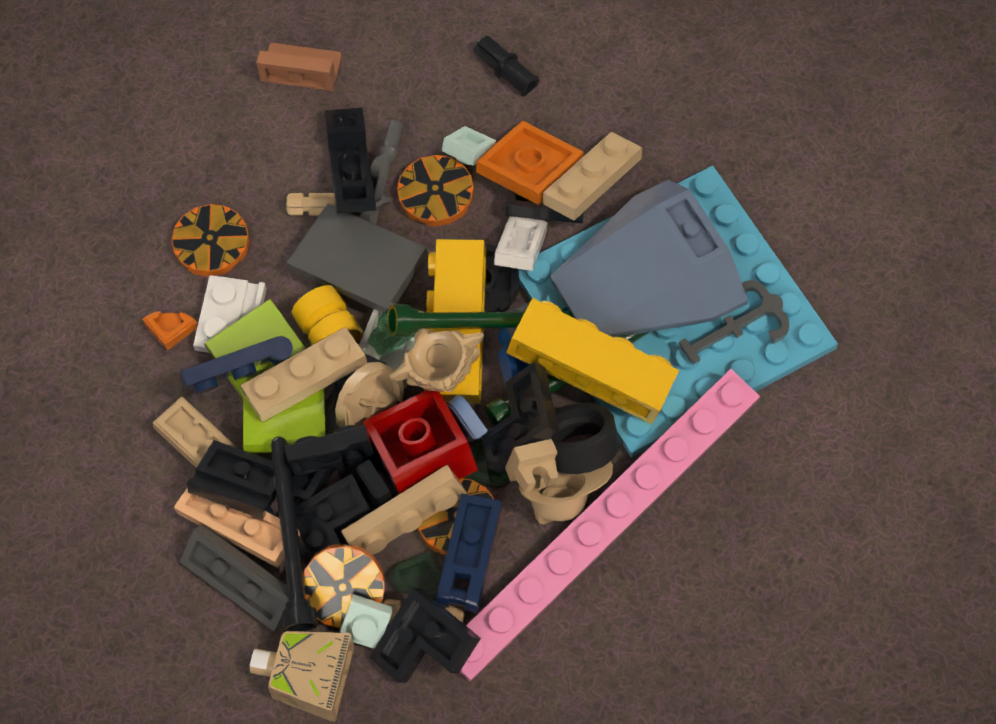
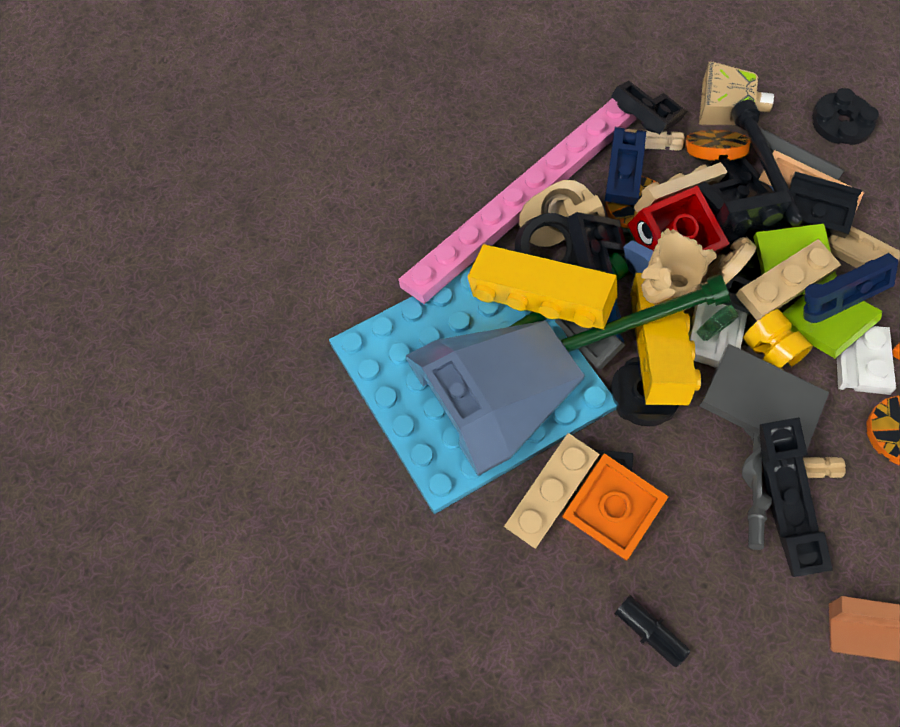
camera: 175 degrees right, 0 degrees up
(159, 620) = (844, 102): none -> black plate
(366, 620) = (695, 123): light aqua plate -> none
(417, 573) = (659, 164): clear green tile -> none
(435, 190) = (702, 485): tile -> none
(467, 145) = (677, 527): light aqua plate -> none
(520, 243) = (614, 416): white plate -> none
(771, 306) = (384, 361): dark grey piece -> none

